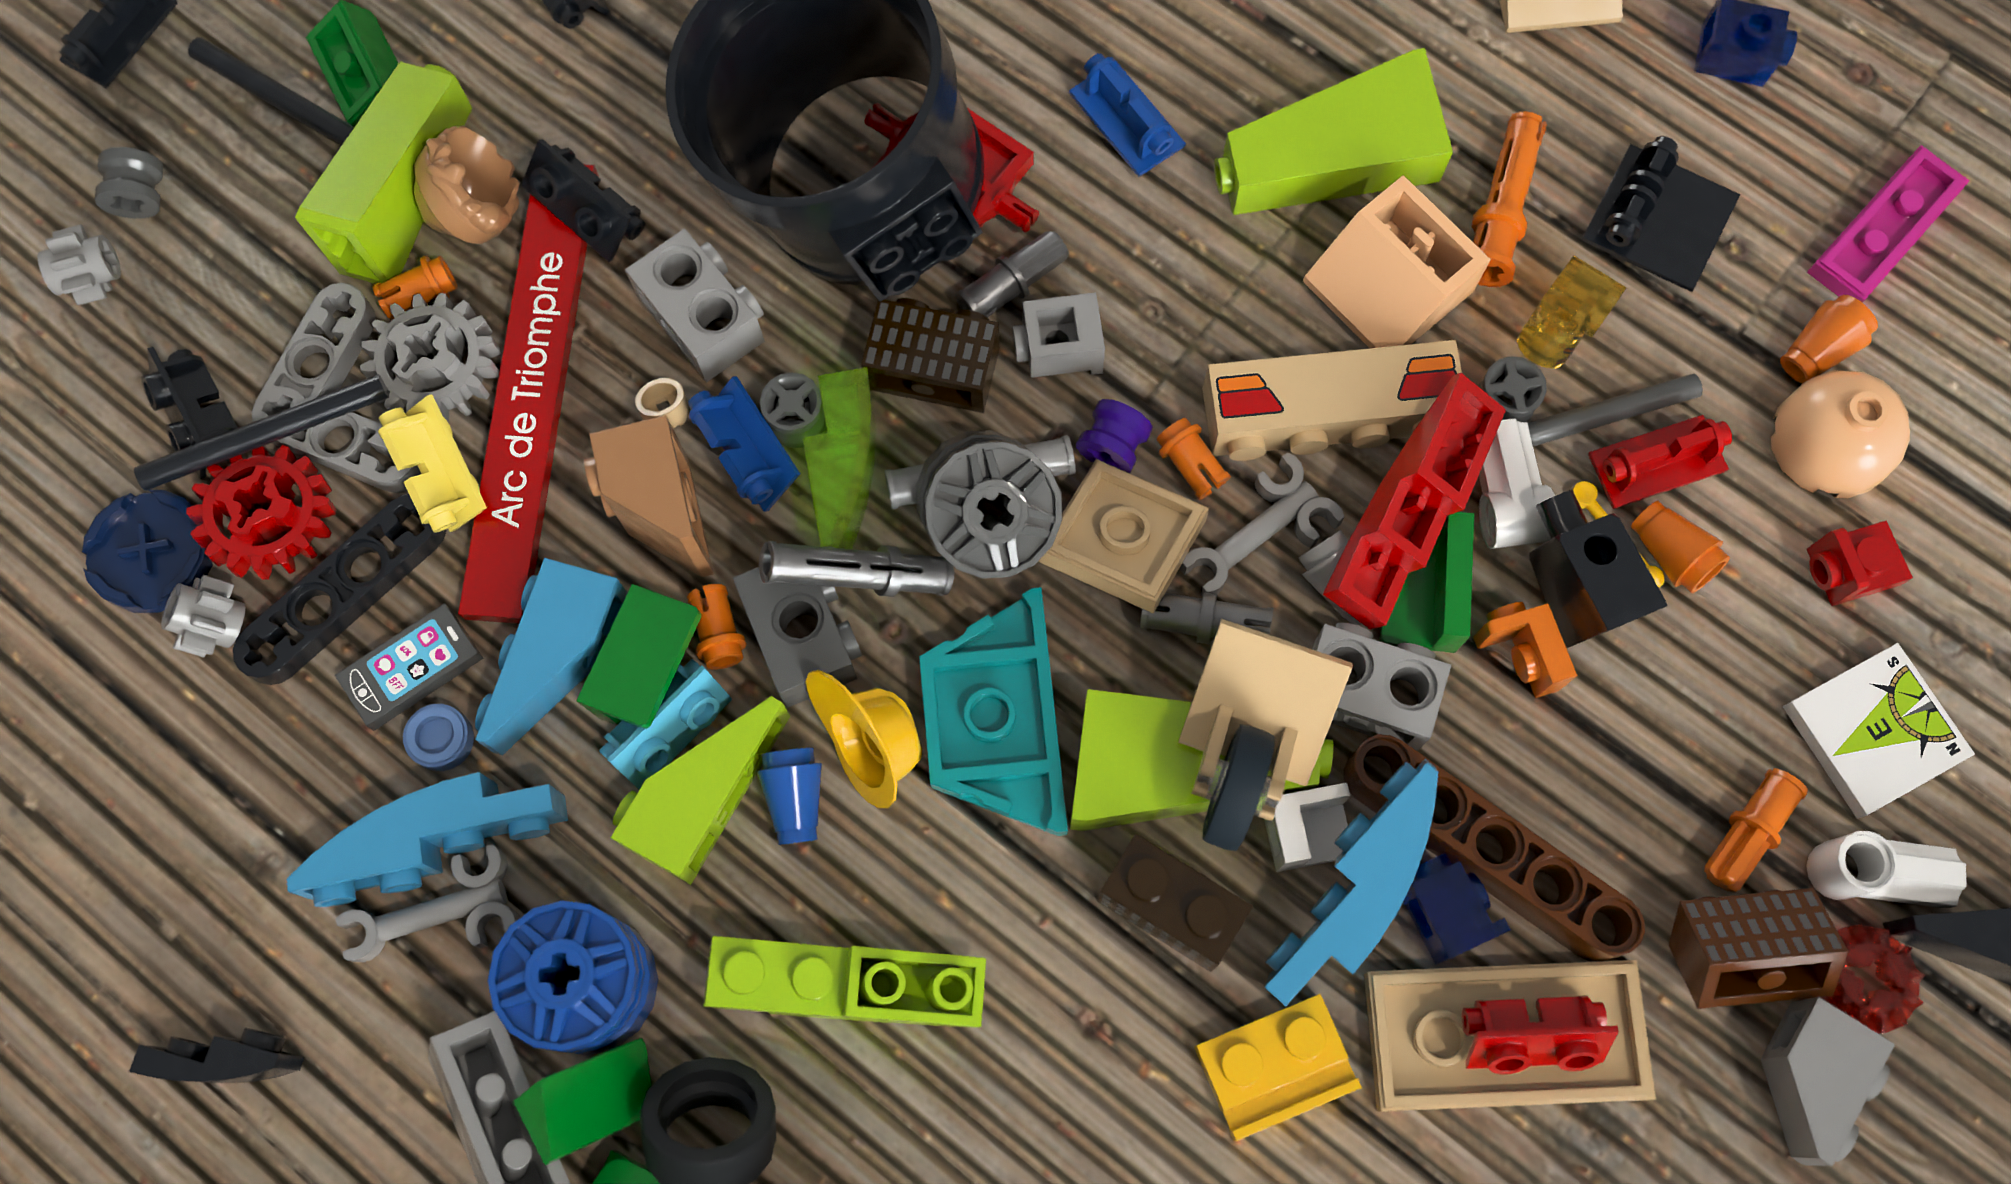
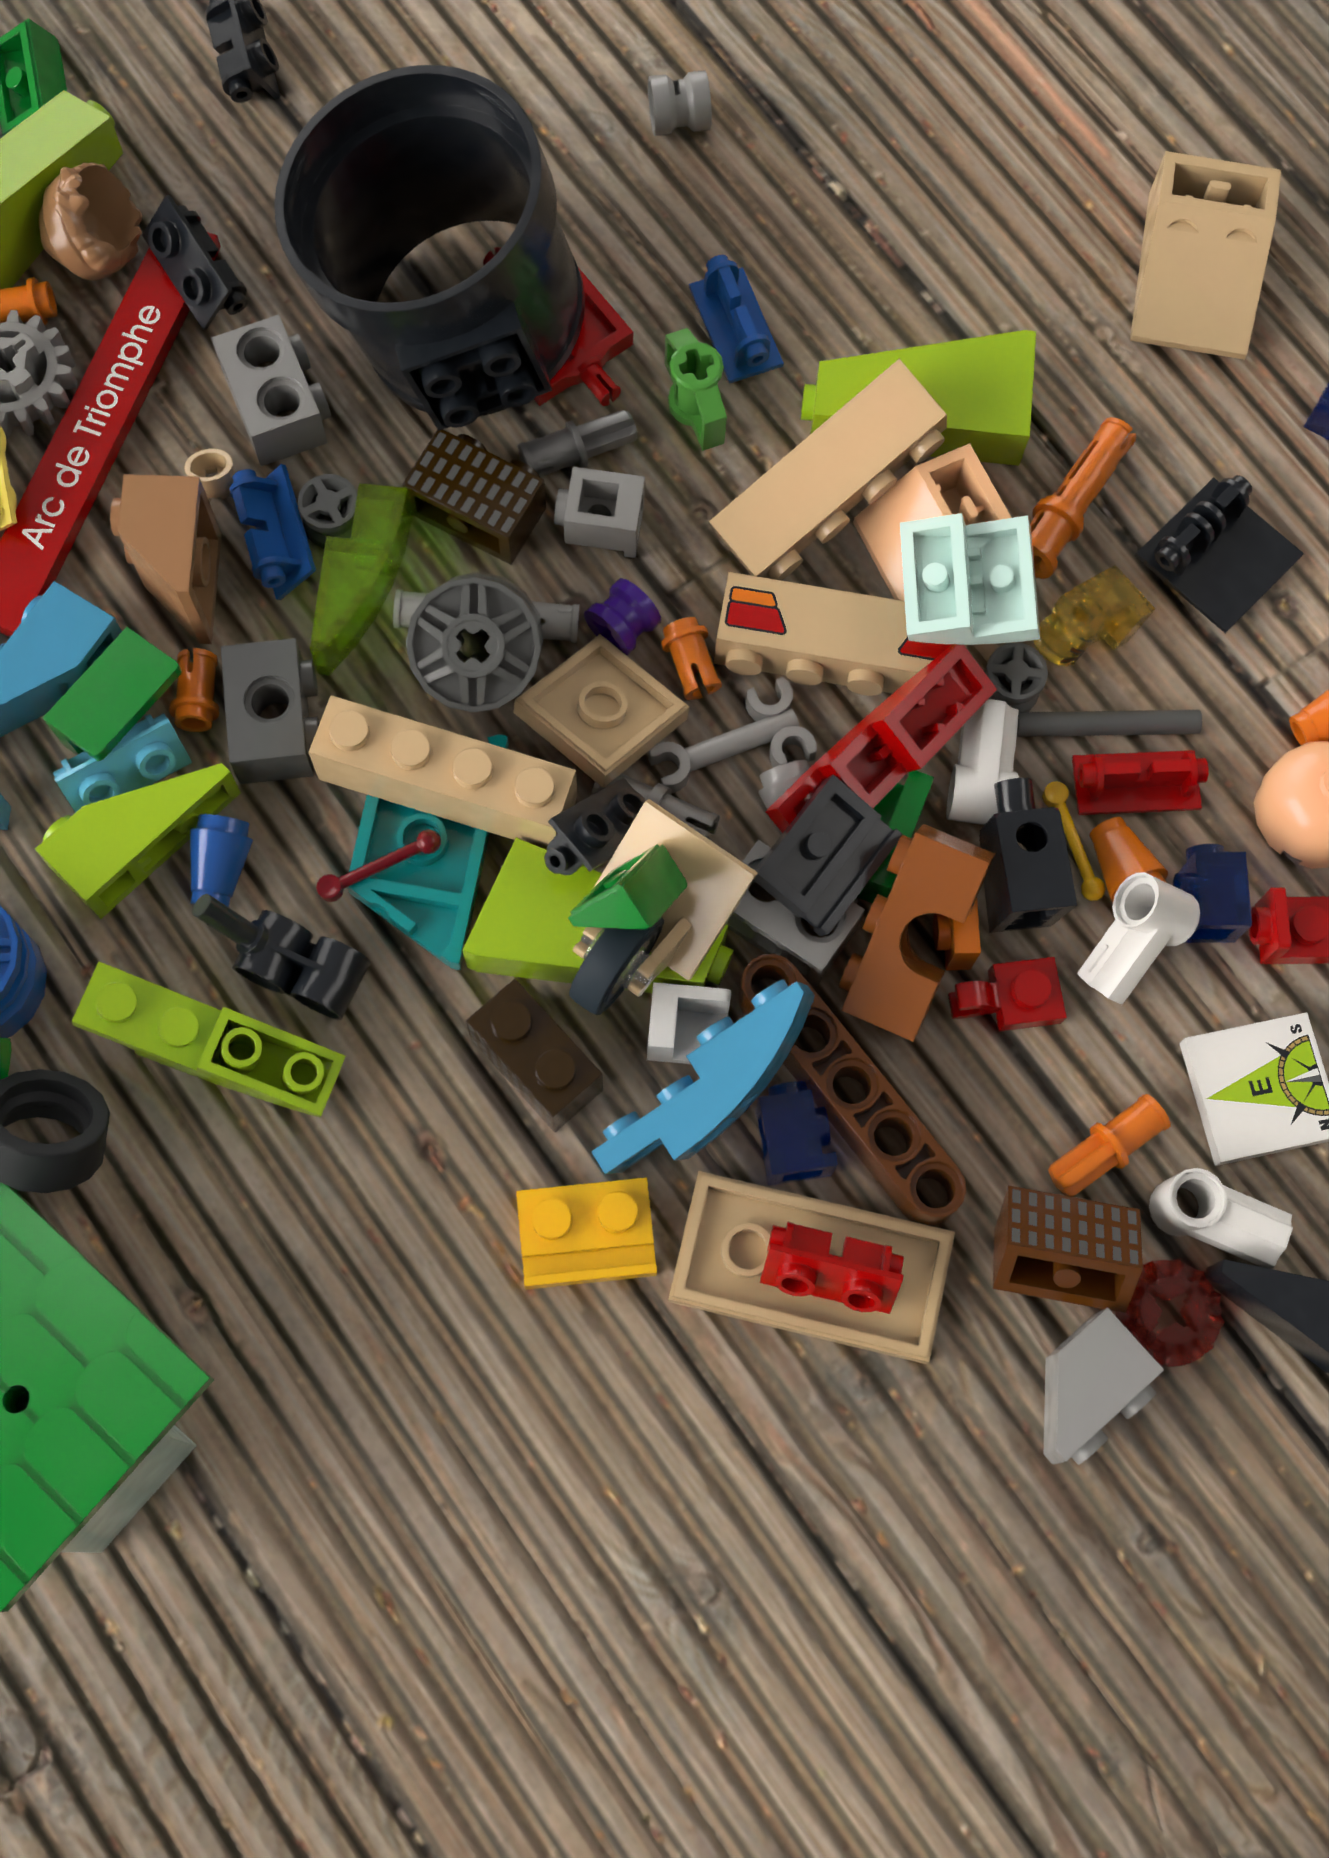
camera: 10 degrees right, 0 degrees up
(870, 734) = (306, 822): yellow piece -> none
(883, 570) = (361, 678): flat silver pin -> none
(891, 876) = (283, 959): none -> black beam
(918, 789) = (332, 887): none -> dark red hinge
(999, 645) = (441, 772): none -> tan brick
(1111, 189) = (695, 393): none -> bright green piece
(1170, 660) = (592, 828): none -> black hinge
(1241, 723) = (632, 893): none -> green slope
(1277, 239) = (831, 473): none -> tan brick
(1402, 622) = (826, 855): none -> black plate
(1453, 311) = (969, 581): none -> light aqua slope
(1514, 616) = (890, 981): none -> dark orange arch
(1615, 703) = (1017, 991): none -> red plate
(1716, 620) = (1146, 920): none -> white piece
(1771, 553) = (1222, 890): none -> clear blue brick

